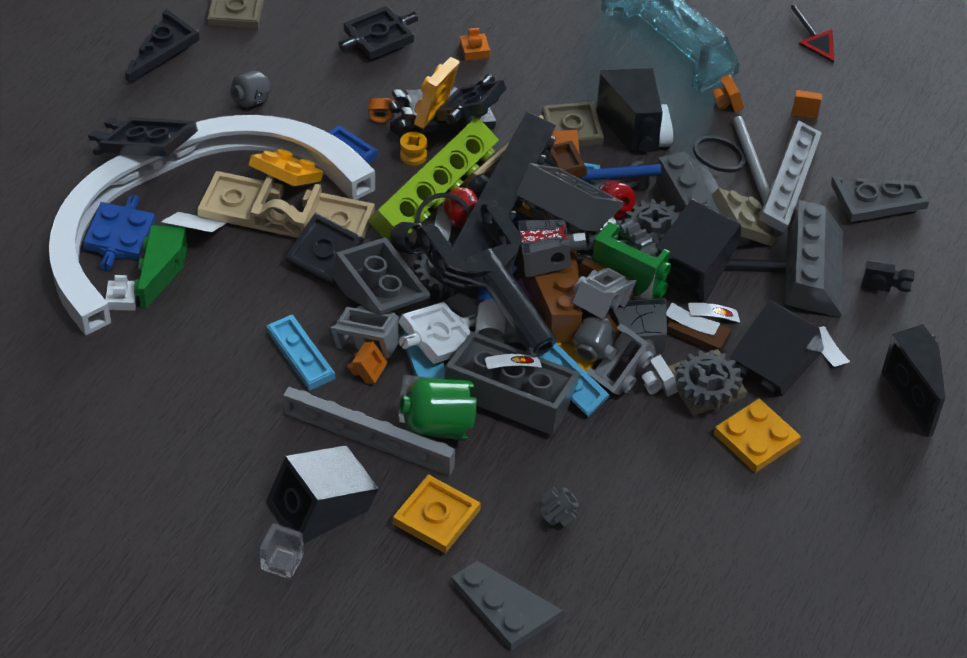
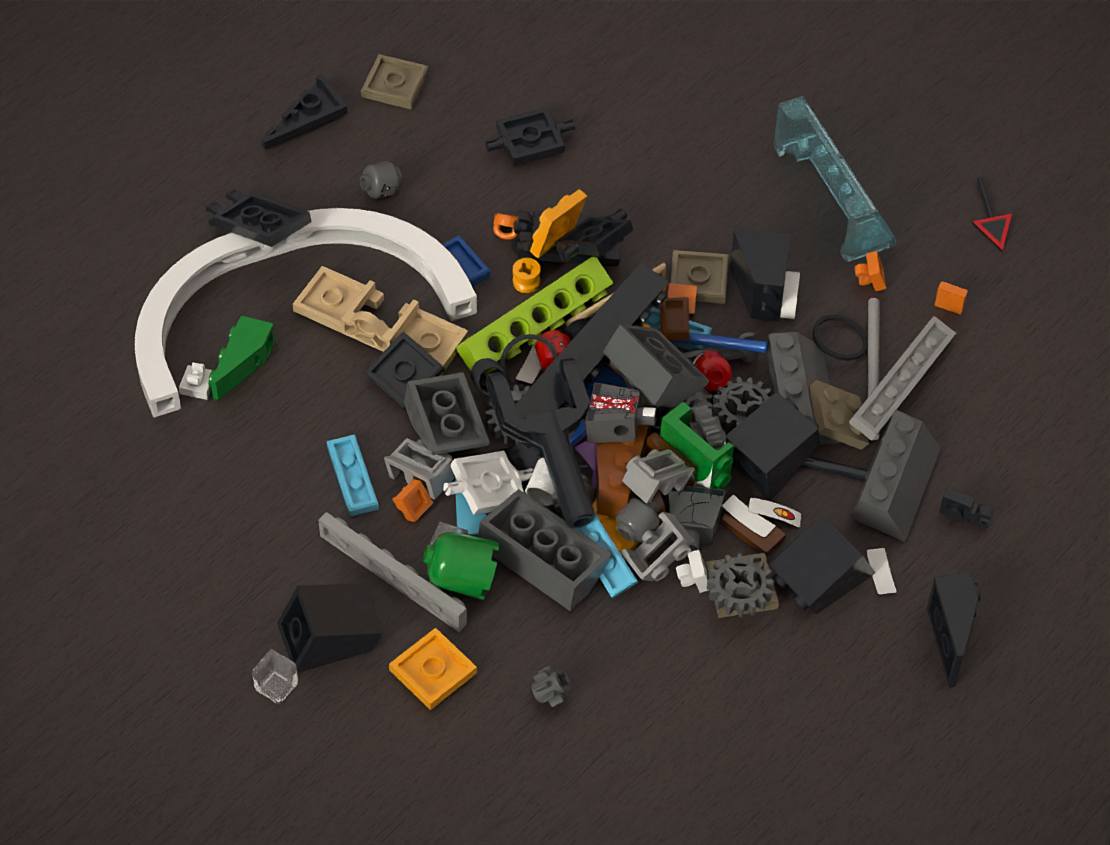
camera: 15 degrees right, 5 degrees up
(119, 231) = (211, 313): blue plate -> none
(194, 222) = (284, 318): white sticker -> none
(286, 168) = (391, 275): light orange plate -> none
(474, 45) = (625, 168): orange tile -> none
(505, 605) = (471, 773): dark grey wing -> none
(512, 360) = (547, 528): white sticker -> none
(757, 435) = (774, 651): light orange plate -> none
(875, 200) = (986, 419): dark grey wing -> none

